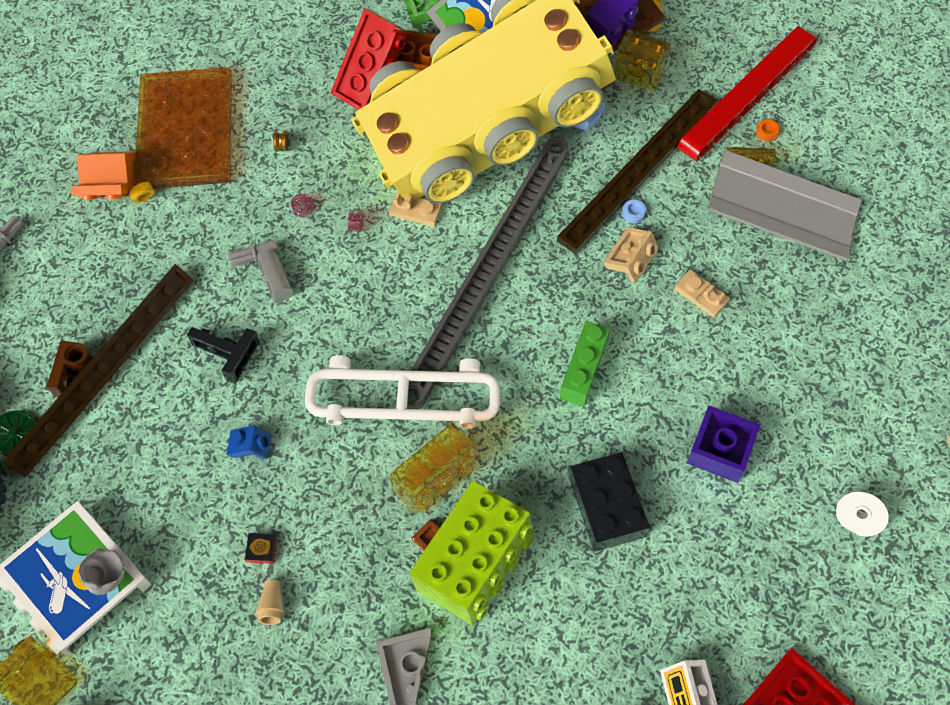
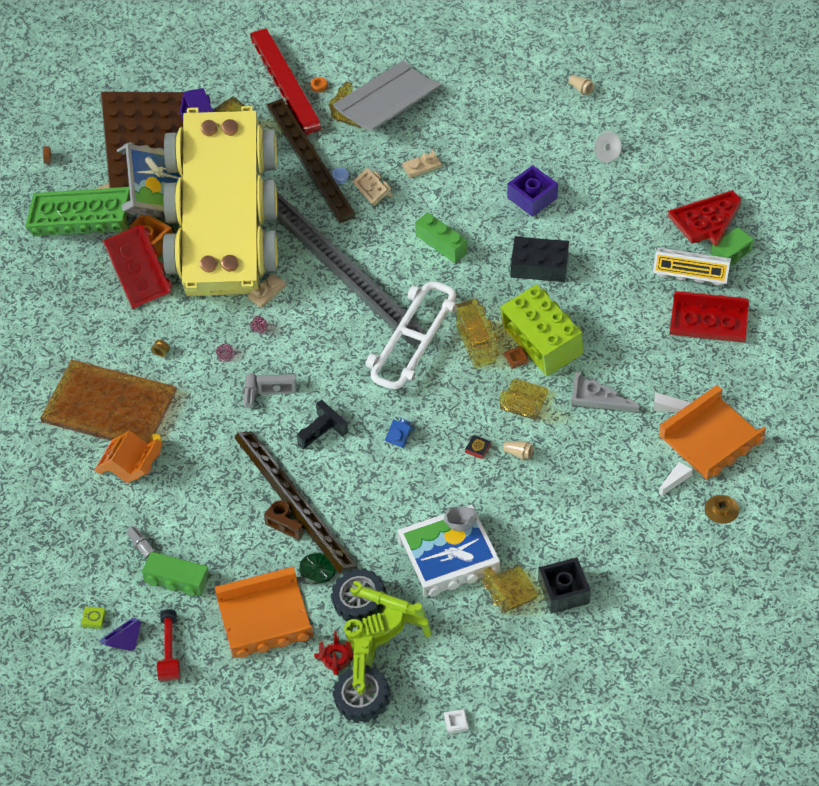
camera: 65 degrees left, 10 degrees down
(358, 575) = (523, 398): none -> clear yellow bracket

